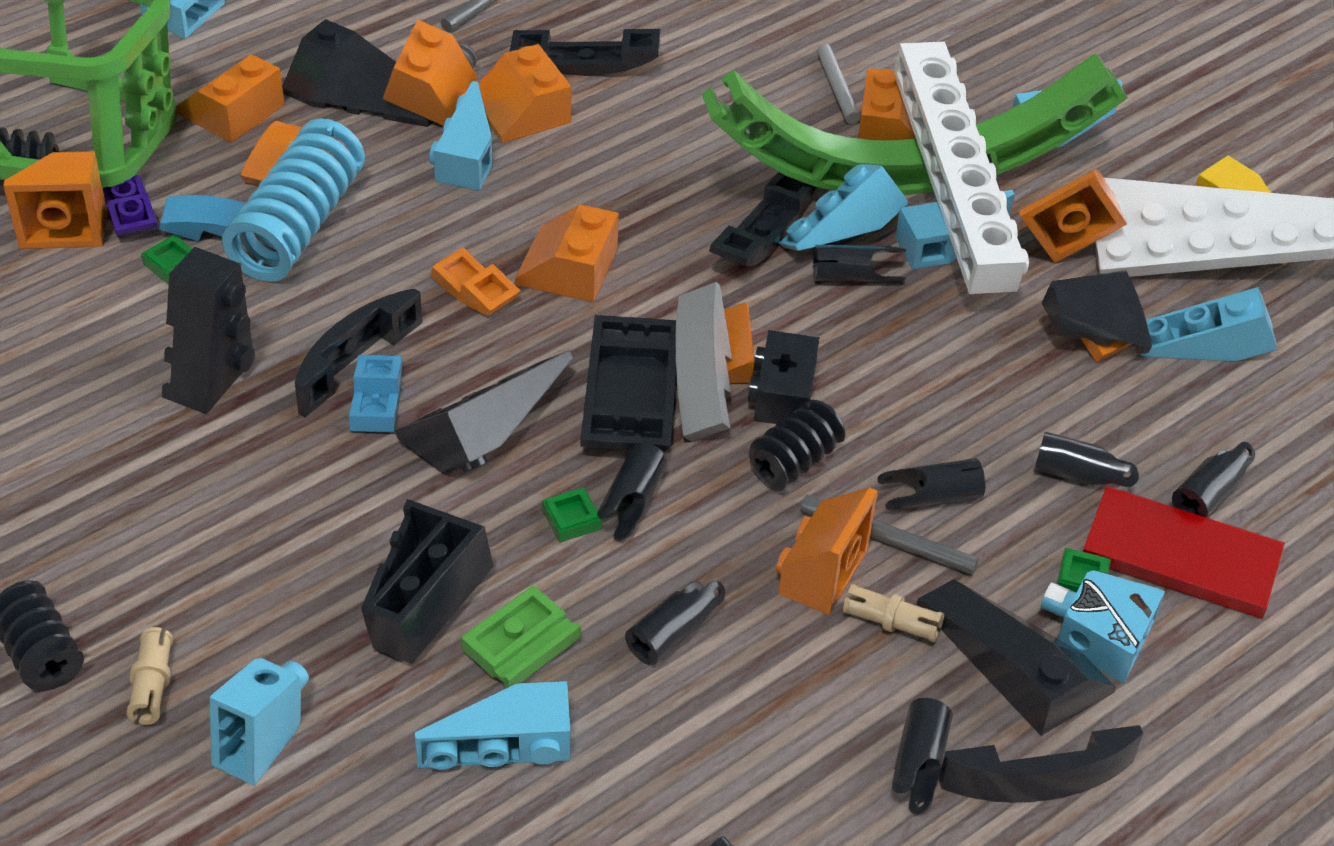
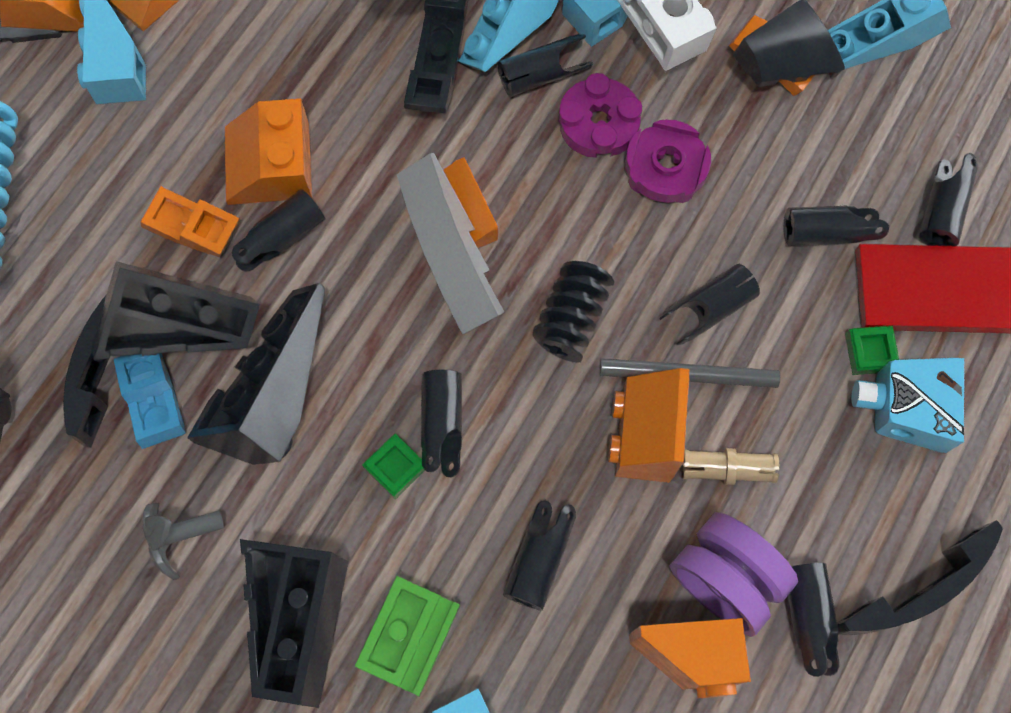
camera: 20 degrees left, 25 degrees up
(335, 489) = (161, 533): none -> dark grey plant
(427, 323) = (165, 313): none -> black wedge
(550, 310) = (278, 231): none -> black piece
(630, 383) = (391, 296): black slope -> none
(783, 721) = (697, 654): none -> orange slope
(785, 377) = (531, 208): black brick -> none
(852, 676) = (734, 572): none -> medium lavender wheel
(897, 302) = (603, 95): none -> magenta plate
(938, 386) = (663, 183): none -> magenta plate
(1024, 663) = (858, 467): black wedge -> none

